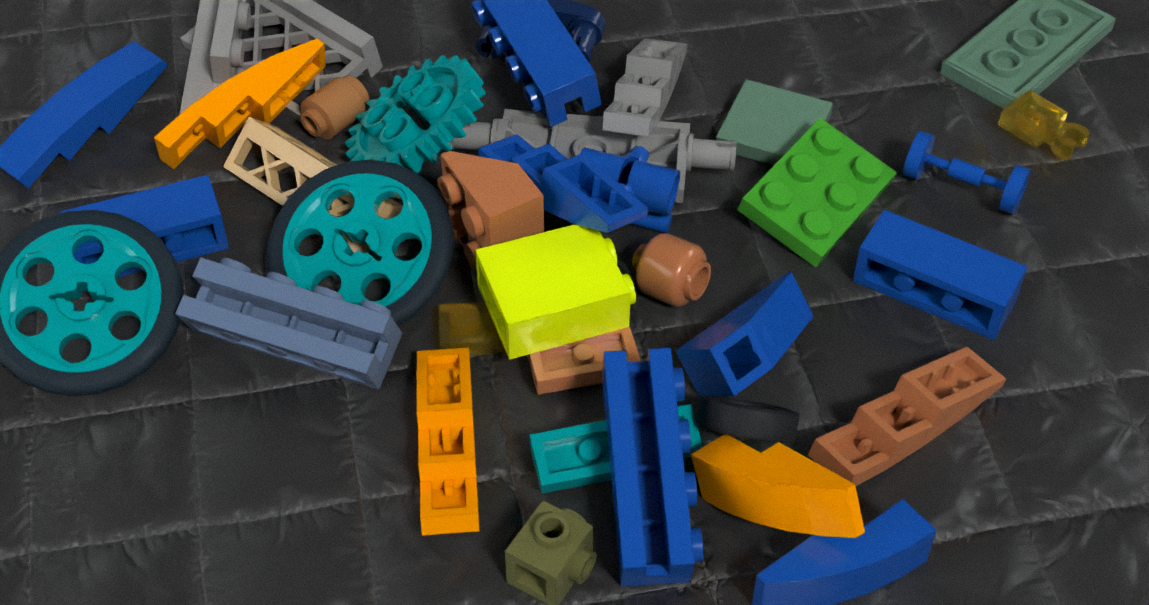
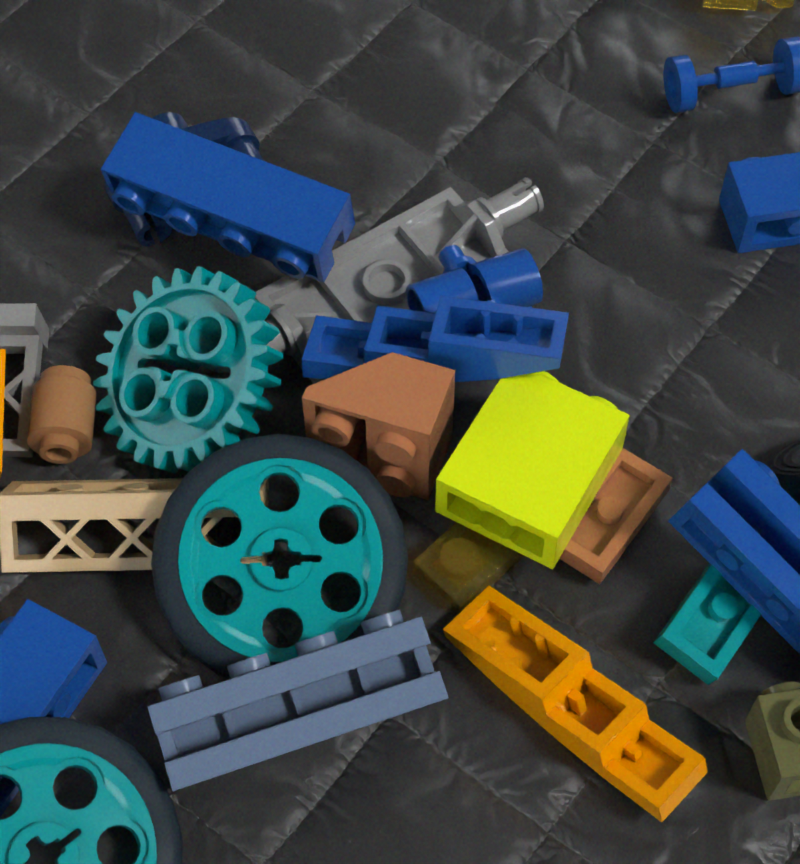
camera: 40 degrees left, 10 degrees up
(645, 87) = (379, 183): light grey slope -> none
(671, 269) = (600, 357): nougat head -> none
(746, 340) = (740, 388): blue slope -> none
(770, 120) = (516, 136): sand green tile -> none
(817, 192) = (631, 182): bright green plate -> none

